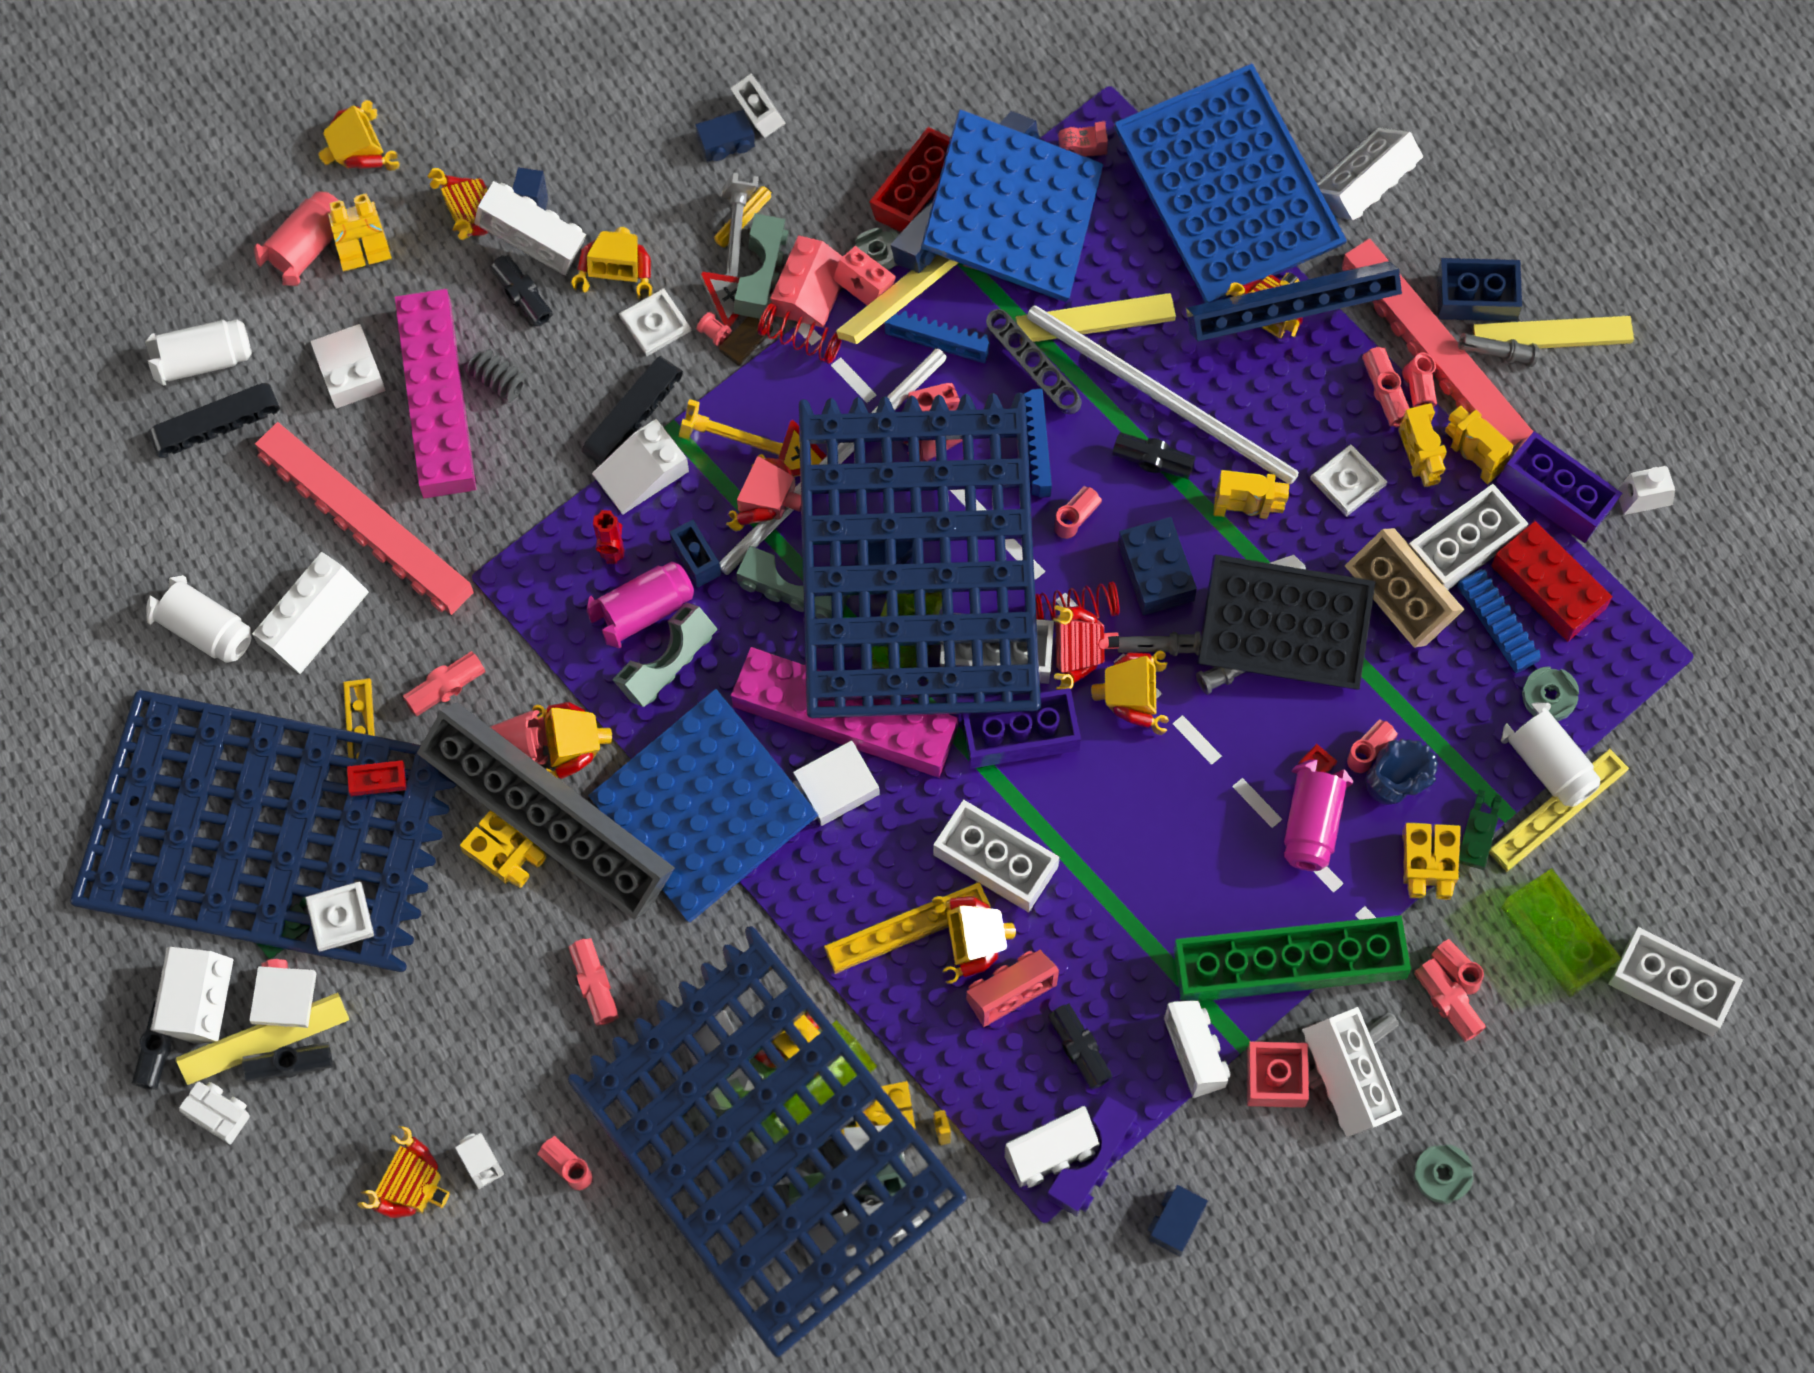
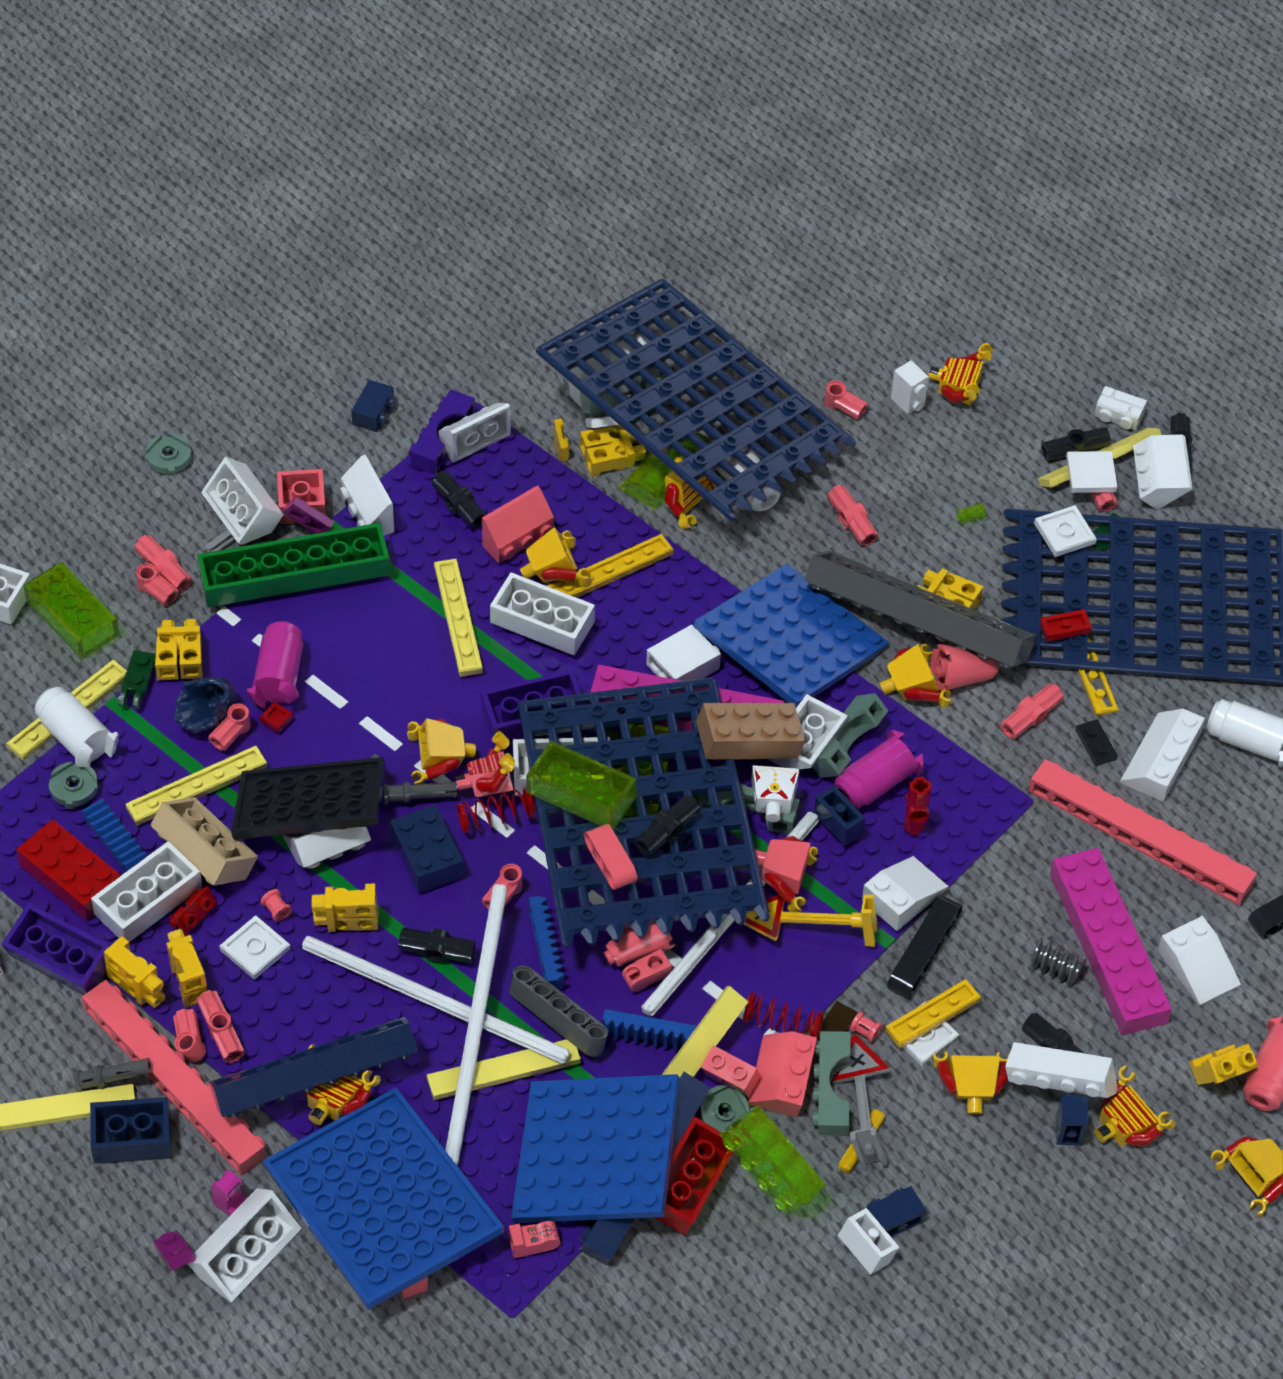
camera: 170 degrees right, 15 degrees down
(381, 641) = (1096, 742): none -> black plate
(445, 973) = (970, 513): none -> clear neon green pin
(641, 333) = (932, 1013): none -> yellow tile
(711, 653) = (819, 727): none -> white slope
(763, 572) = (774, 790): none -> white torso
(781, 623) = (750, 731): none -> medium nougat brick
(840, 170) = (772, 1159): none -> clear neon green brick
(894, 504) = (667, 825): none -> black piece
(962, 472) = (610, 856): none -> coral beam
(984, 556) = (581, 785): none -> clear neon green brick
(1095, 880) = (458, 617): none -> light yellow tile
(1120, 352) = (475, 1023): none -> white axle
(1278, 1027) = (307, 516): none -> magenta plate
(1324, 519) = (276, 905): none -> coral bush
(1381, 216) = (228, 1193): none -> dark pink leg
(1410, 683) = (197, 784): none -> light yellow tile
(1423, 517) = (196, 909): none -> red hinge
(1435, 167) = (173, 1250): none -> magenta plate

